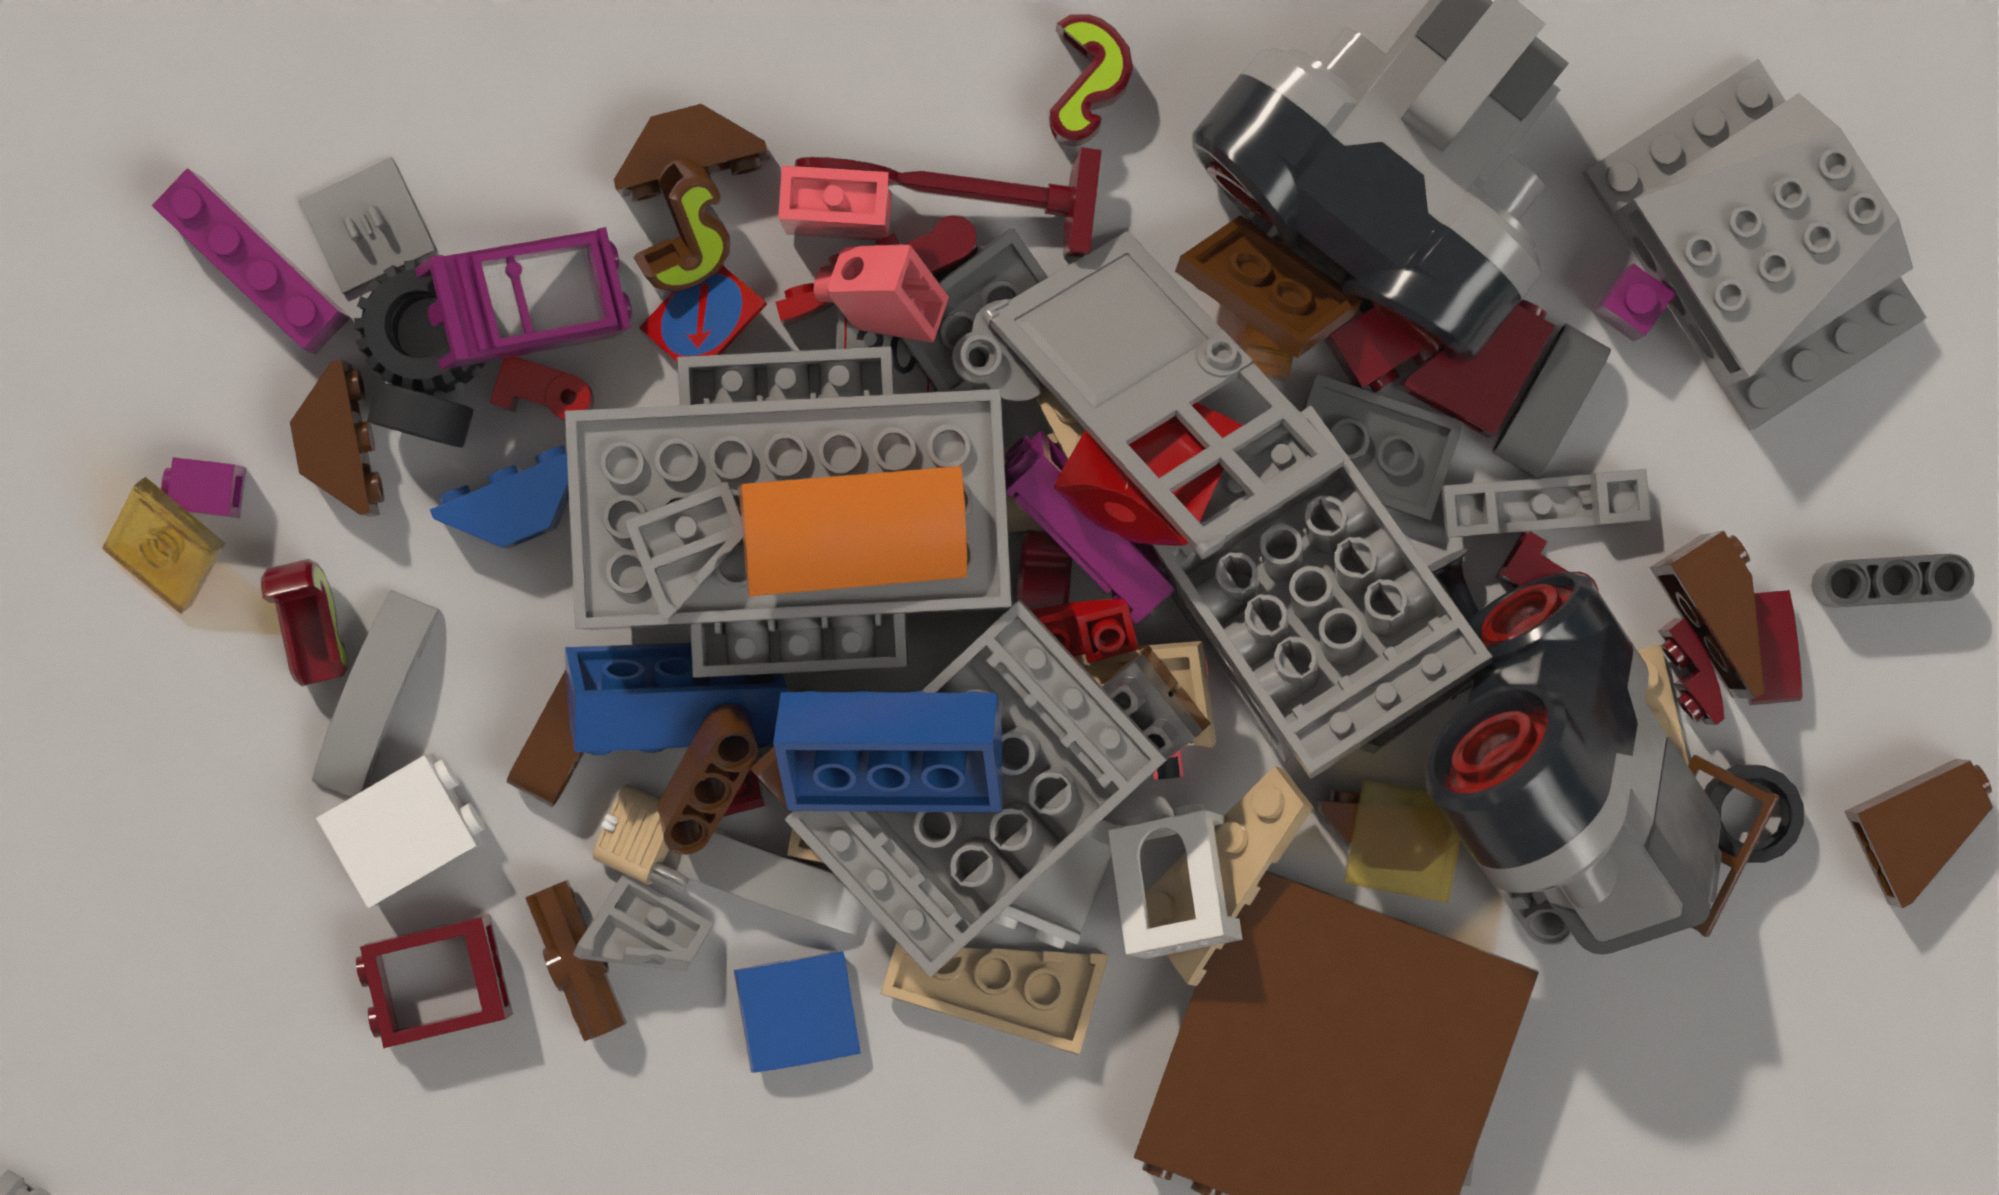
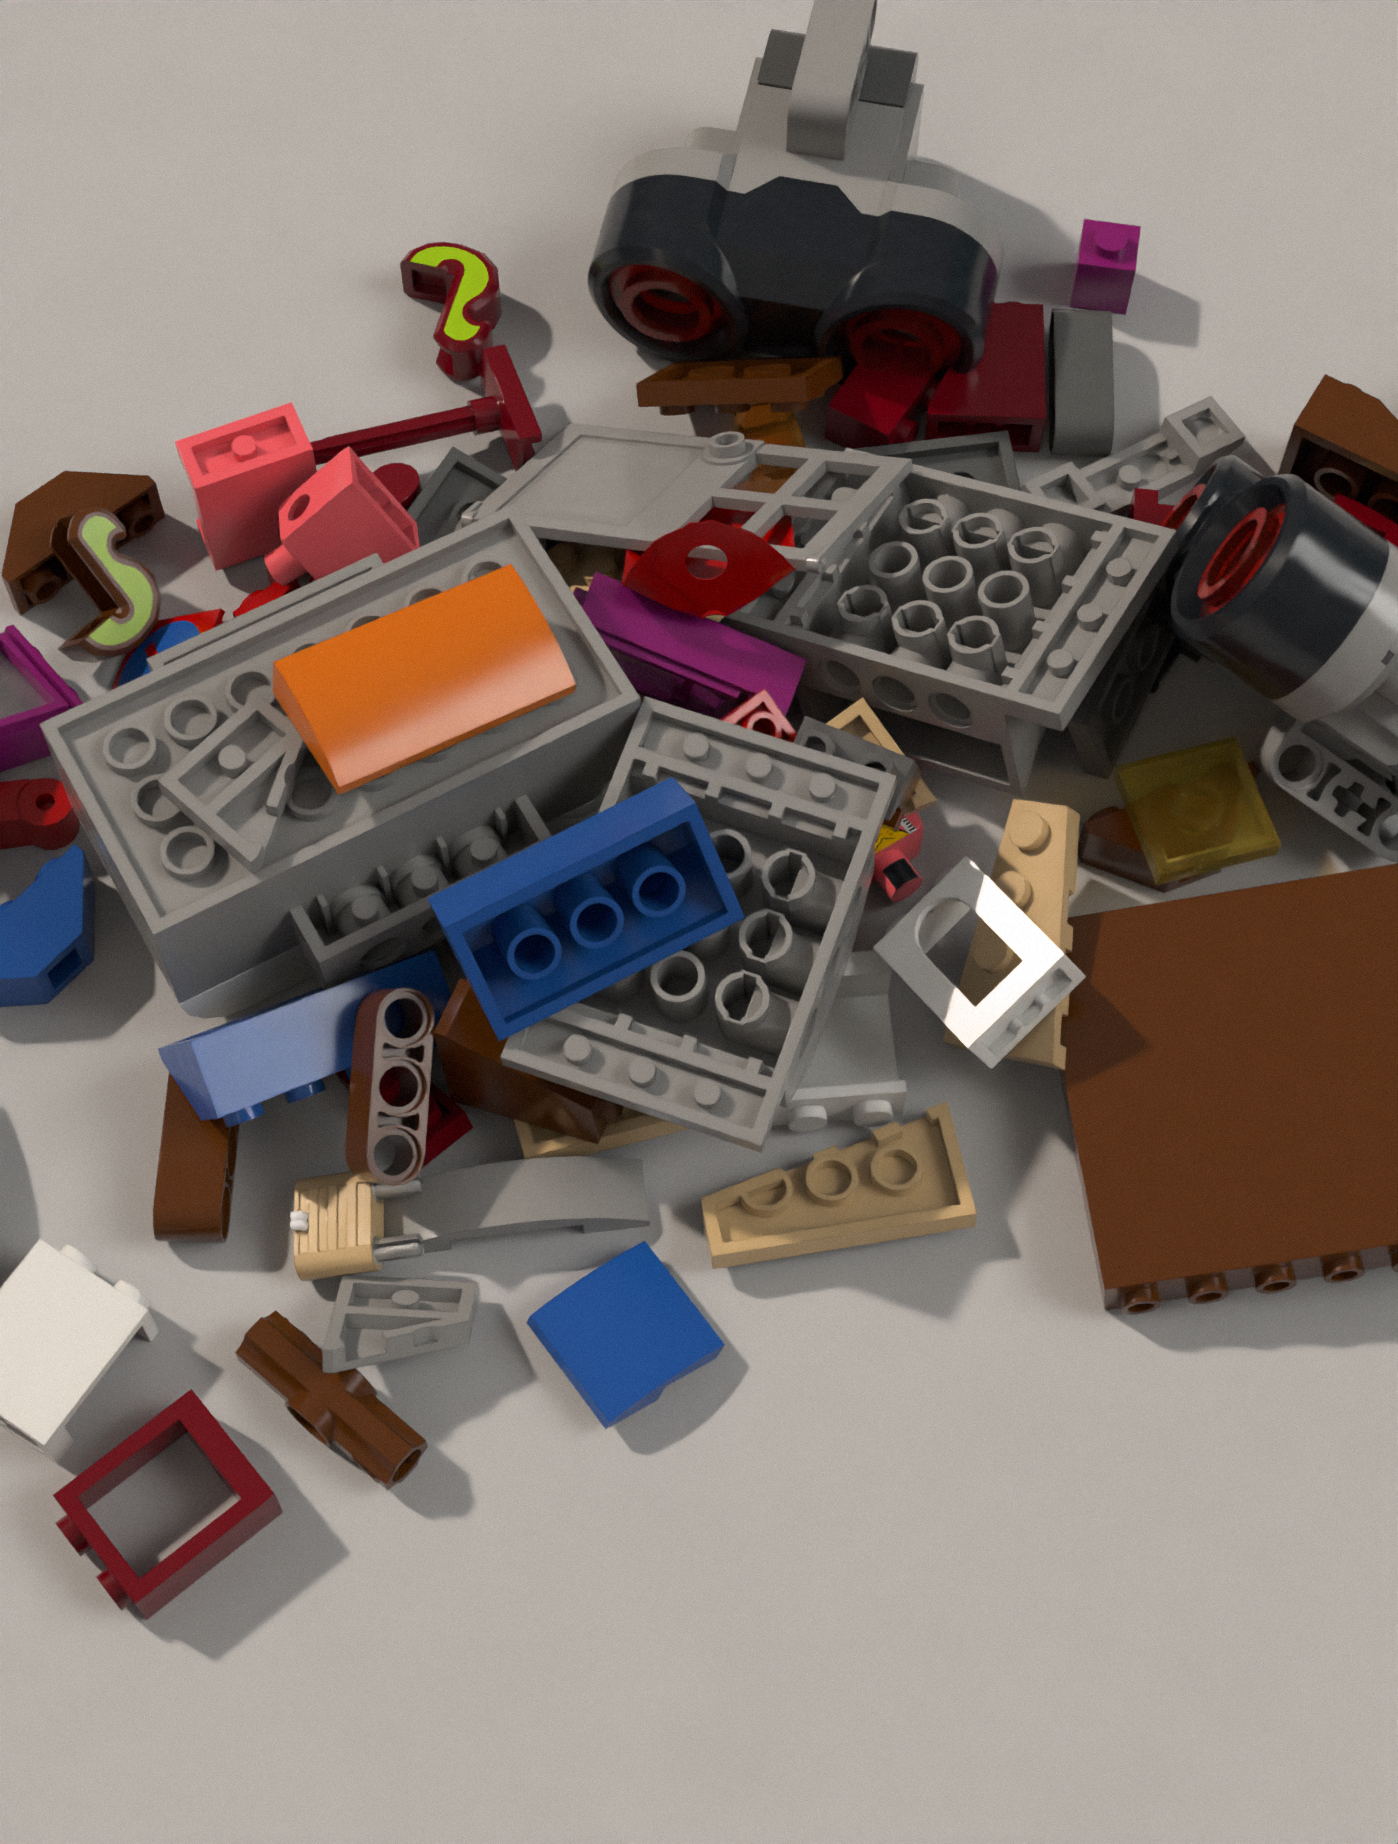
camera: 25 degrees left, 25 degrees down
(1765, 237) = (1209, 147): light grey wedge -> none

